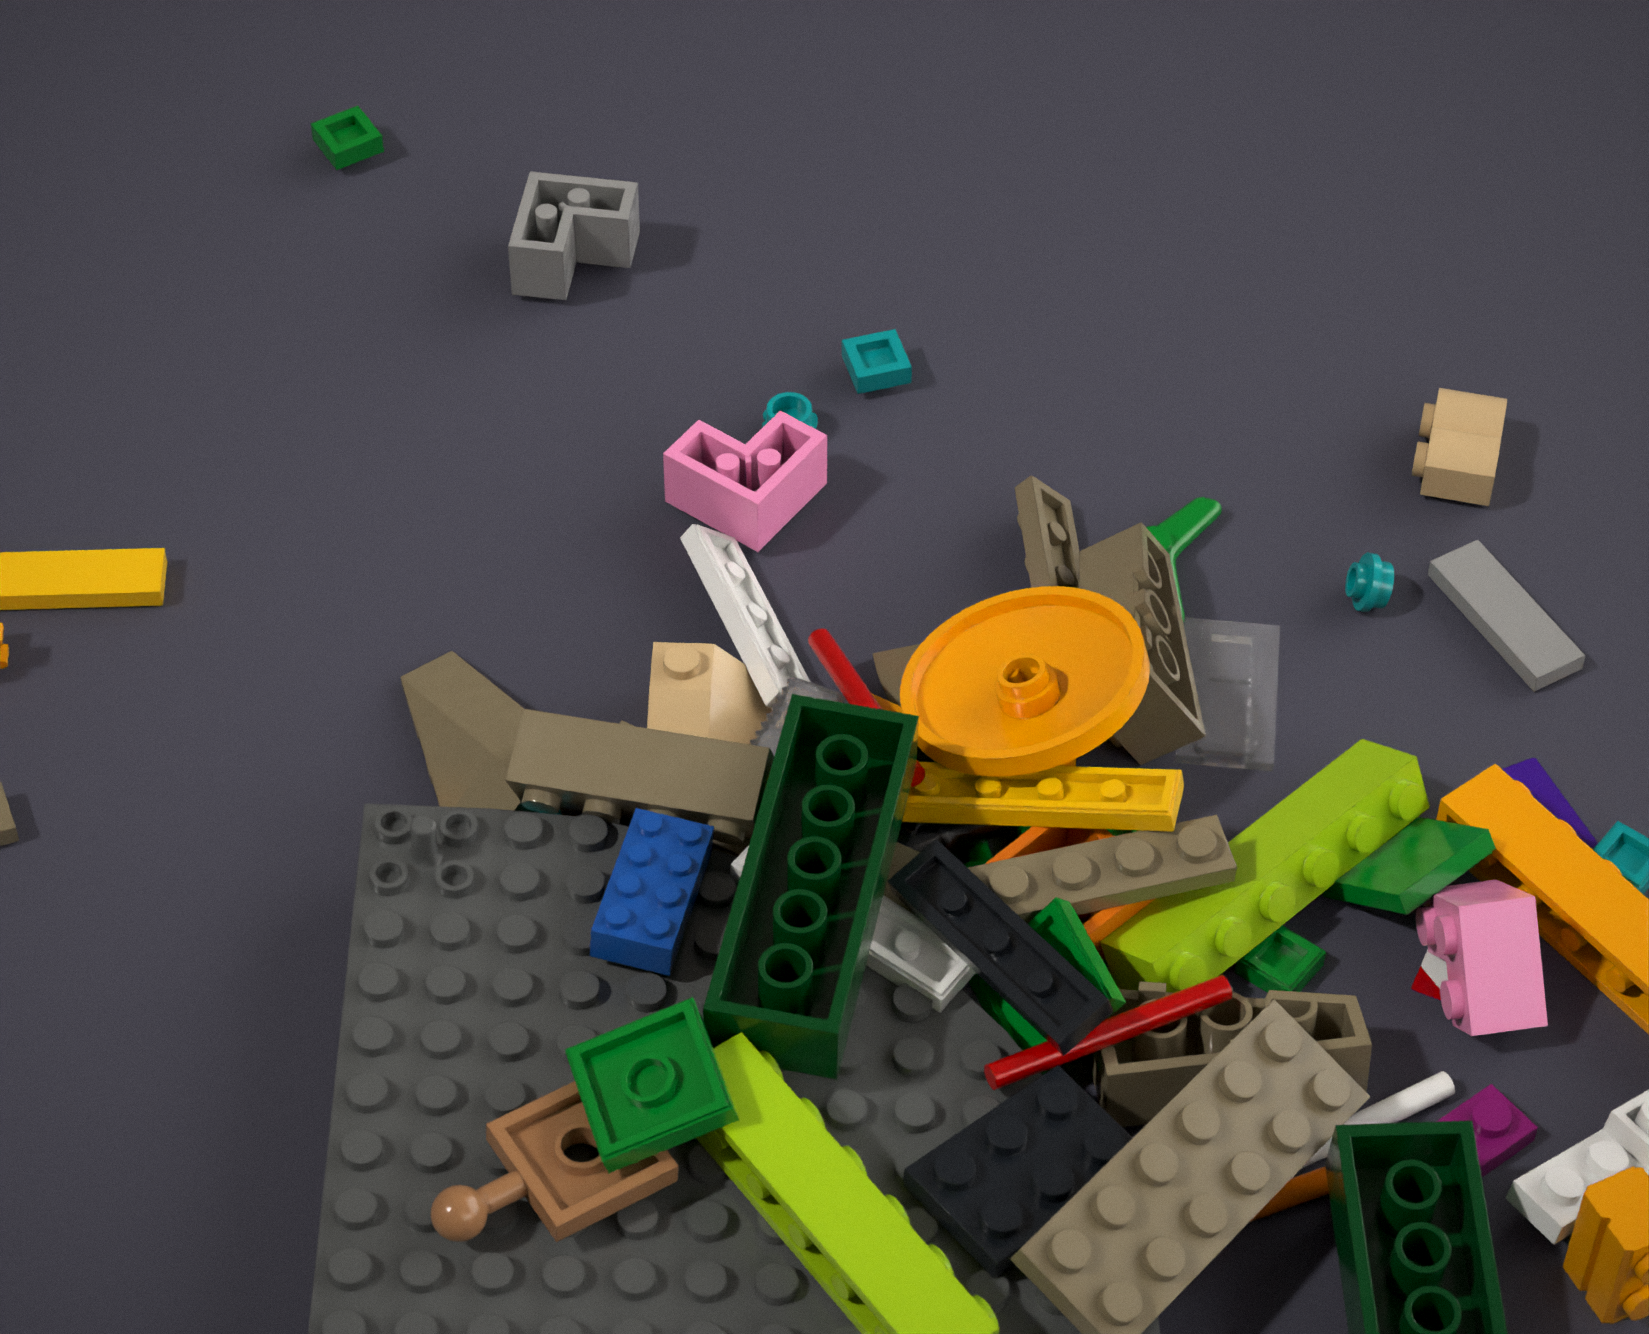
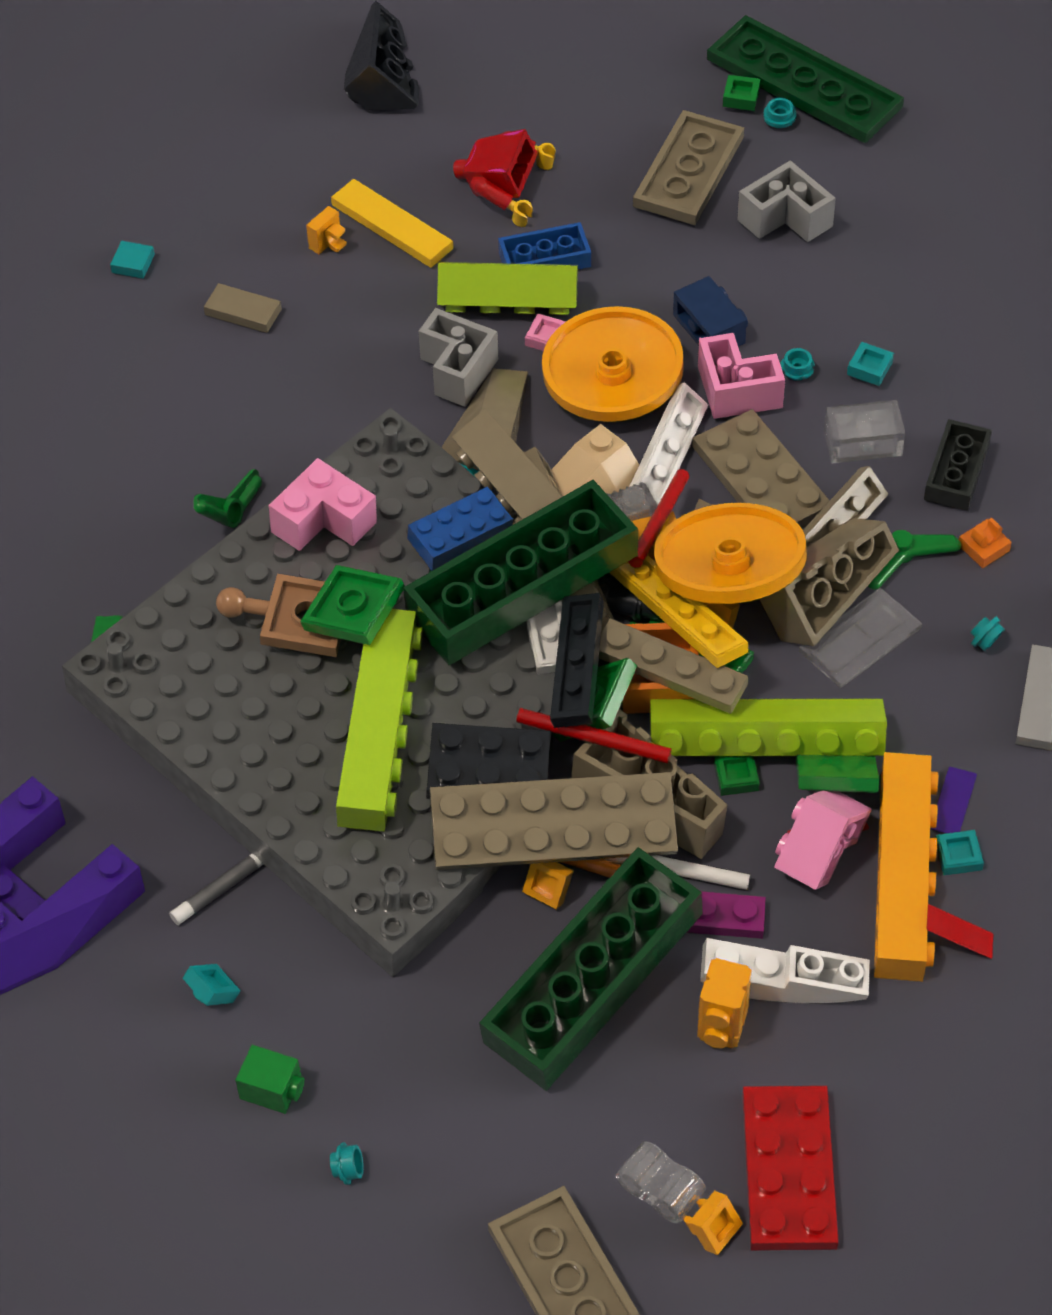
camera: 45 degrees right, 5 degrees up
(138, 415) = (500, 169): none -> red torso
(242, 1112) = (229, 510): none -> green piece
(310, 485) = (547, 246): none -> blue piece
(317, 554) = (507, 286): none -> lime brick
(349, 674) = (460, 354): none -> light grey brick
(382, 267) = (688, 167): none -> dark tan plate
(408, 75) = (806, 78): none -> dark green plate
(423, 135) = (779, 113): none -> teal plate
(423, 587) = (541, 331): none -> bright pink tile
(447, 977) = (319, 501): none -> bright pink brick
(570, 562) = (612, 364): none -> light orange dish
(618, 428) = (707, 311): none -> dark blue brick
(883, 574) = (759, 468): none -> dark tan plate
(963, 444) = (864, 431): none -> clear brick
(1113, 412) = (957, 464): none -> pearl dark grey piece
(1234, 1276) = (548, 883): none -> light orange tile
(1241, 480) = (985, 542): none -> orange tile

